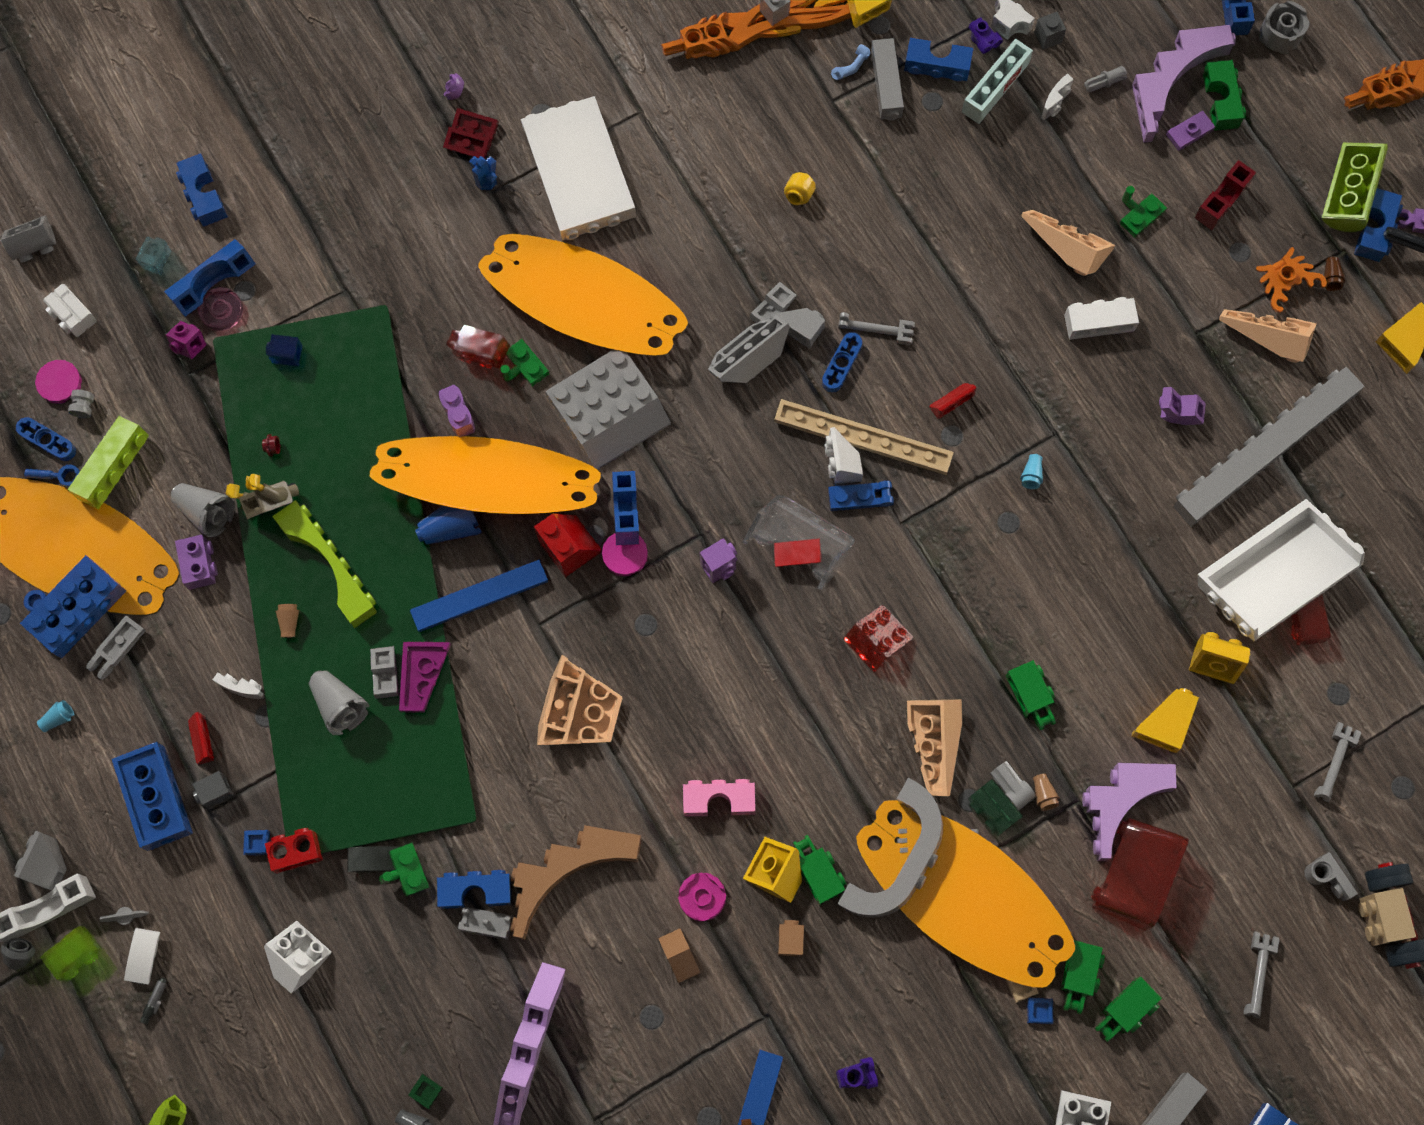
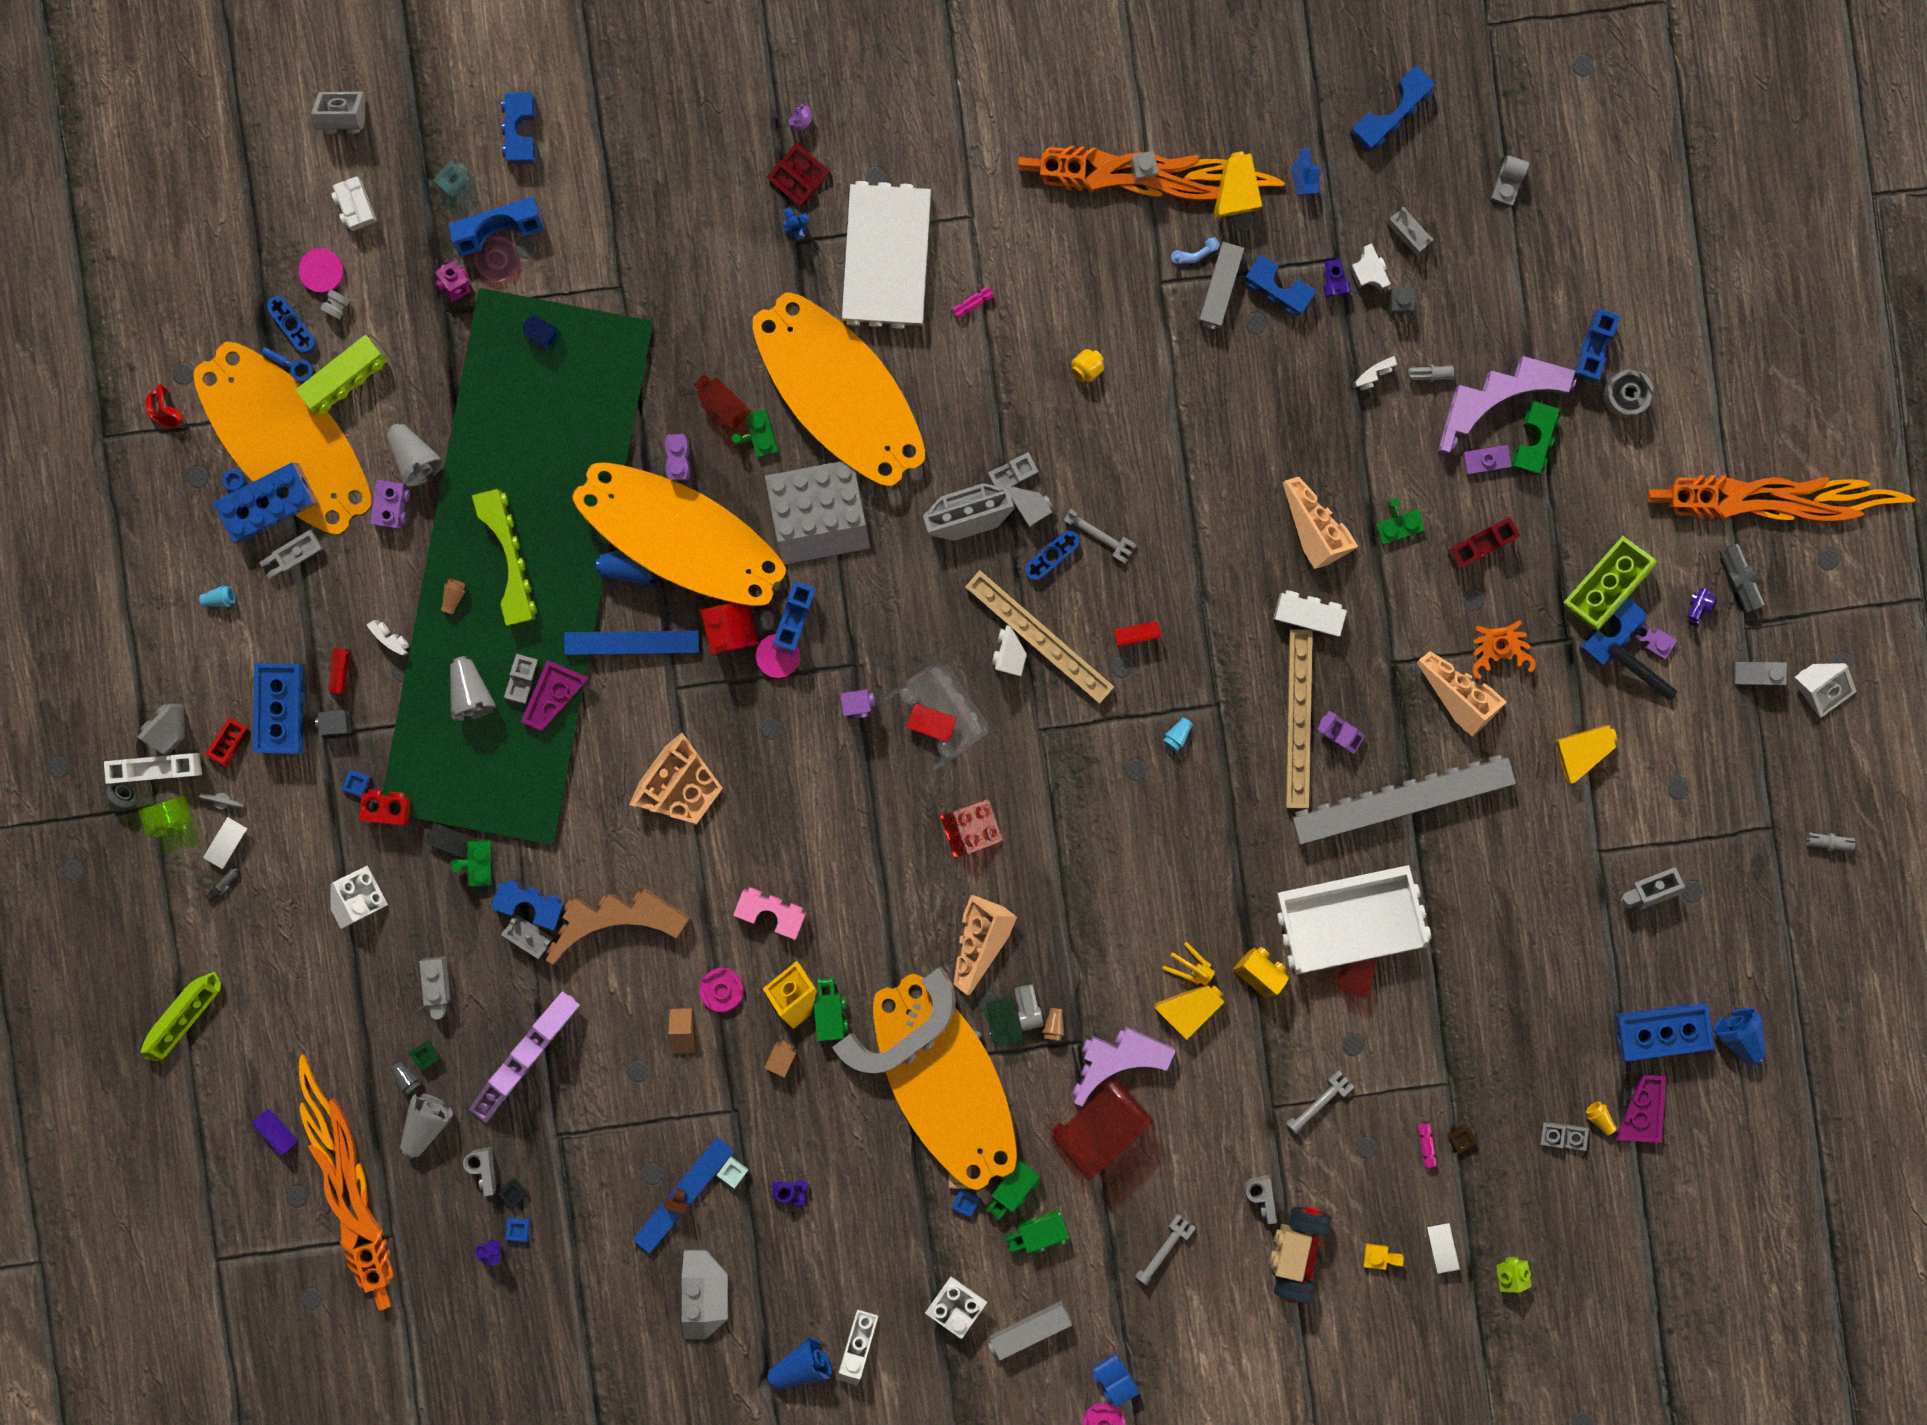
camera: 20 degrees right, 15 degrees up
(116, 867) = (229, 754): none -> red slope
(264, 498) = (470, 477): dark tan torso -> none
(271, 445) = (495, 421): dark red plate -> none
(410, 1011) = (435, 985): none -> light grey brick
(673, 178) = (973, 302): none -> dark pink axle
(791, 1079) = (732, 1172): none -> light aqua plate
(860, 496) = (1012, 690): blue plate -> none
(997, 81) = (1324, 334): light aqua brick -> none
(1032, 692) = (1083, 934): green brick -> none
(1137, 414) = (1299, 718): none -> tan plate
(1161, 681) = (1201, 973): none -> yellow plant
(1334, 274) = (1547, 661): reddish brown cone -> none

